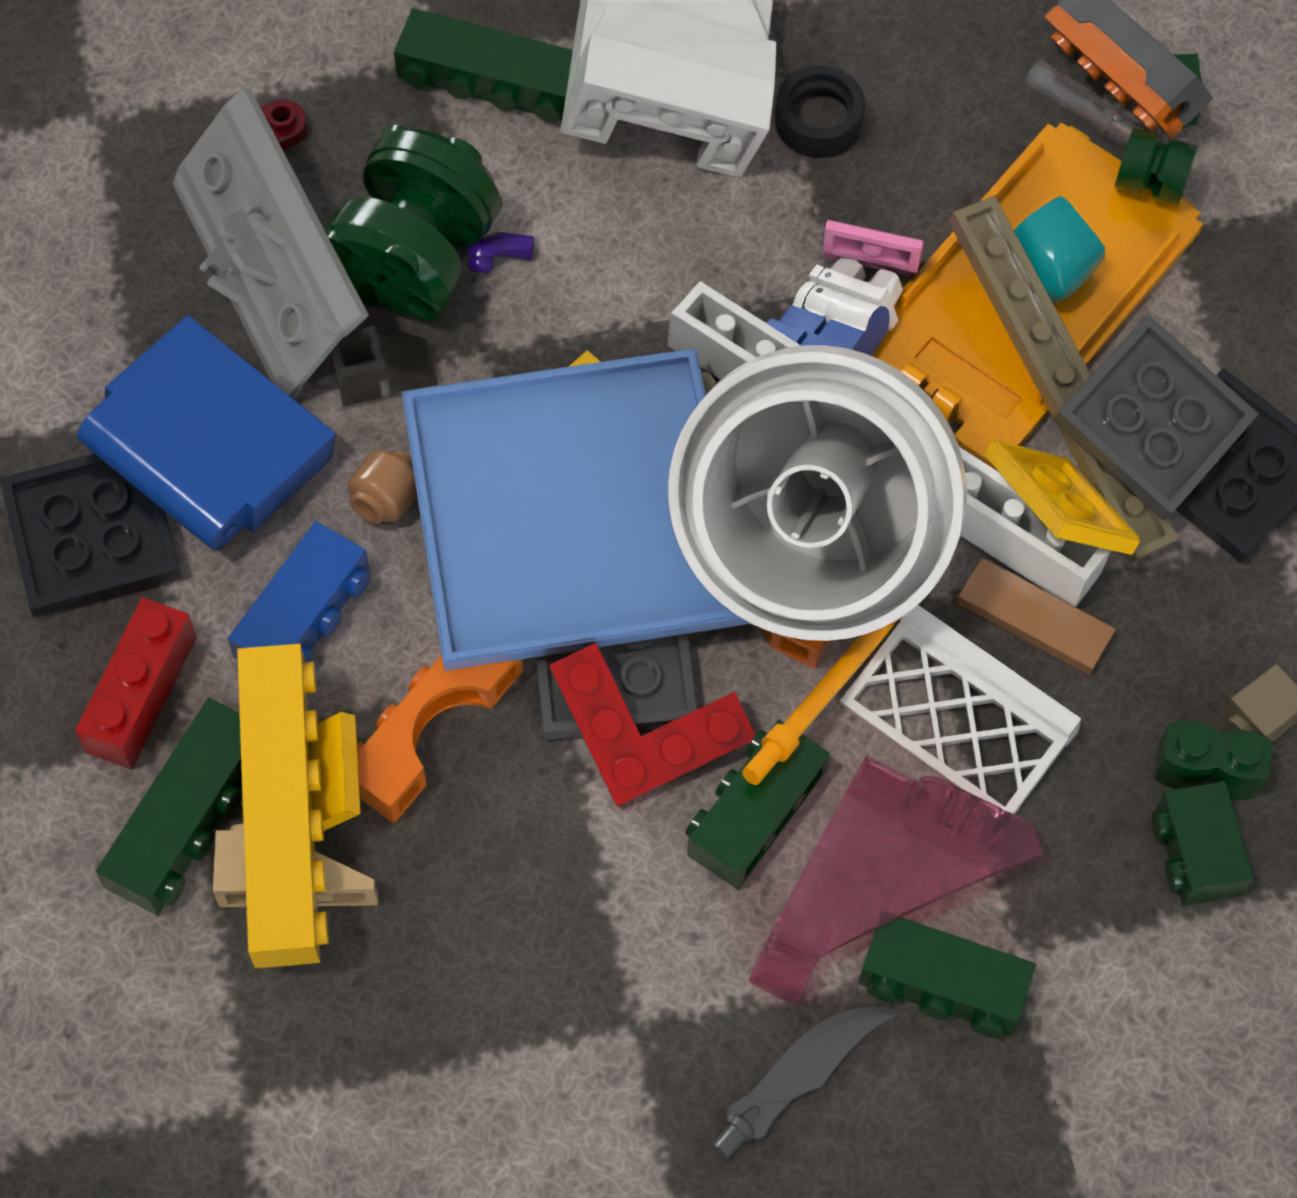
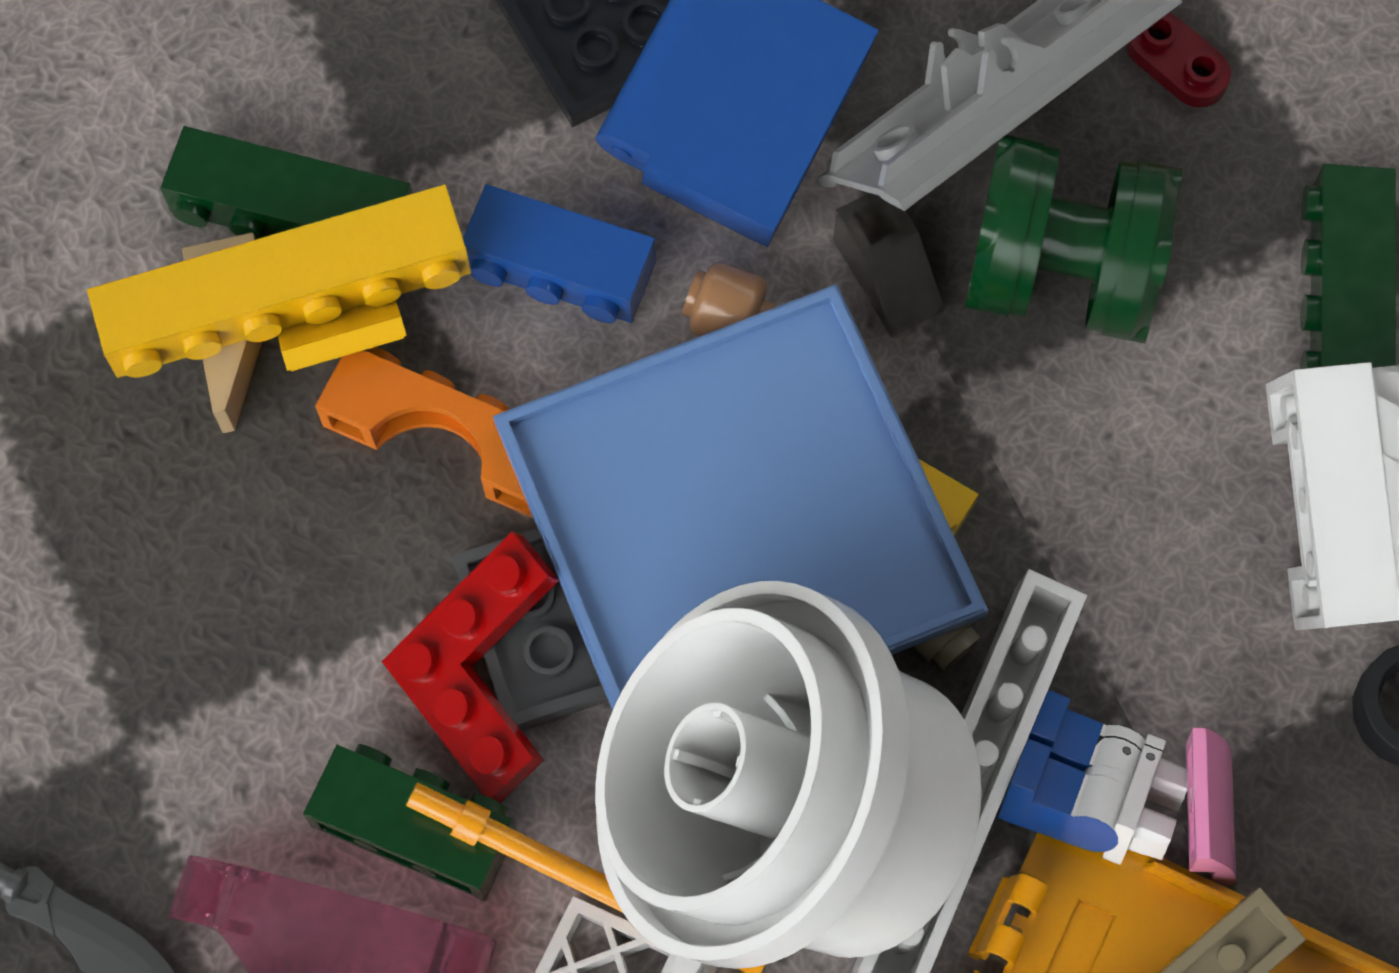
camera: 80 degrees right, 5 degrees up
(136, 683) = (421, 110): red brick -> none
(499, 245) = (1098, 356): dark purple arm -> none

